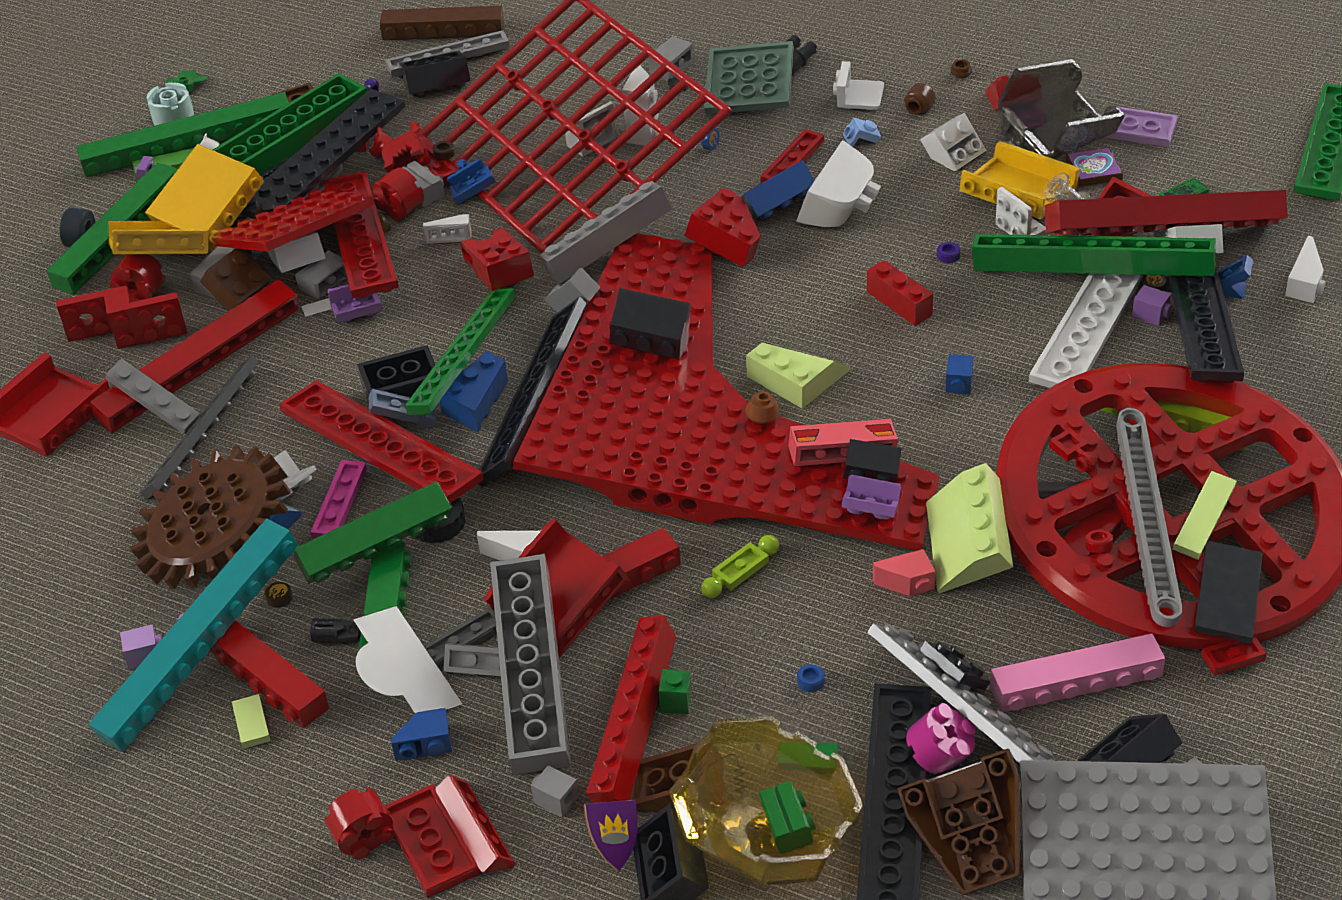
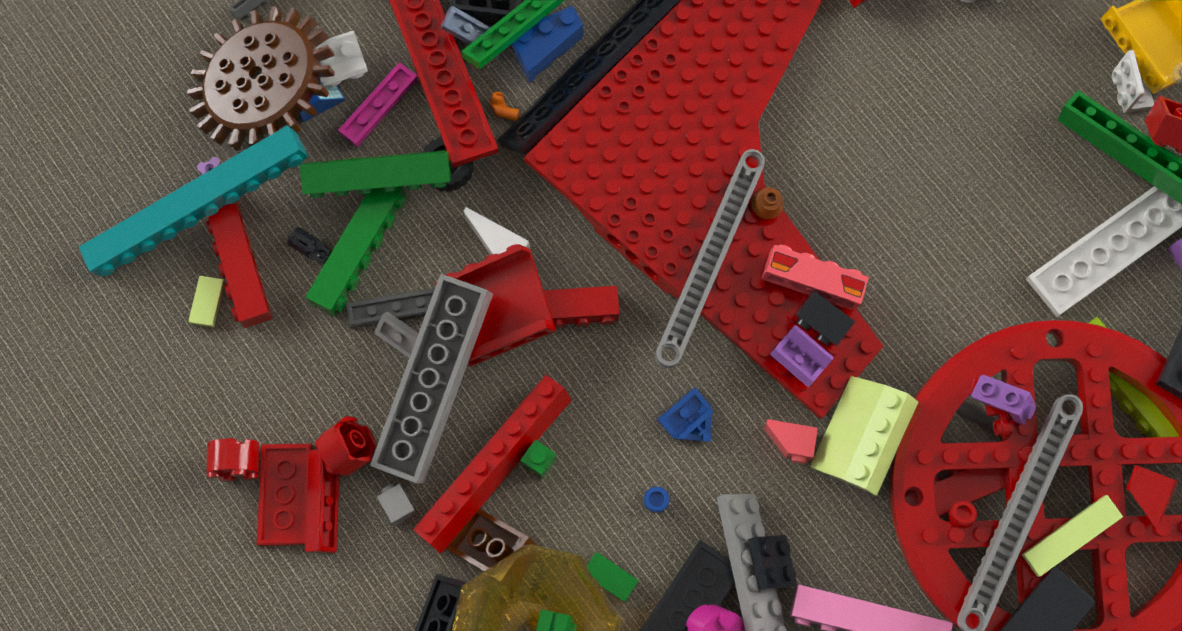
camera: 25 degrees right, 30 degrees up
(138, 644) = (155, 181): lavender brick -> none
(278, 594) = (287, 181): dark brown tile -> none
(399, 664) = (338, 315): white sticker -> none
(423, 735) = (326, 392): blue slope -> none
(469, 458) = (500, 108): none -> orange arm
(474, 759) = (346, 446): none -> red brick
(612, 829) = (418, 572): dark purple shield -> none
(650, 323) = (719, 60): black slope -> none
(738, 465) = (709, 259): none -> light grey gear
(740, 566) = (646, 356): lime plate -> none
(792, 373) = (827, 160): yellowish green wedge -> none
(798, 604) = (688, 418): none -> blue slope
(899, 292) = (971, 117): red brick -> none
(948, 252) = (1047, 86): dark purple tile -> none
(959, 374) = (967, 242): blue brick -> none
(1073, 431) = (1005, 397): none -> medium lavender bracket
(1246, 454) = (1151, 492): none -> red slope

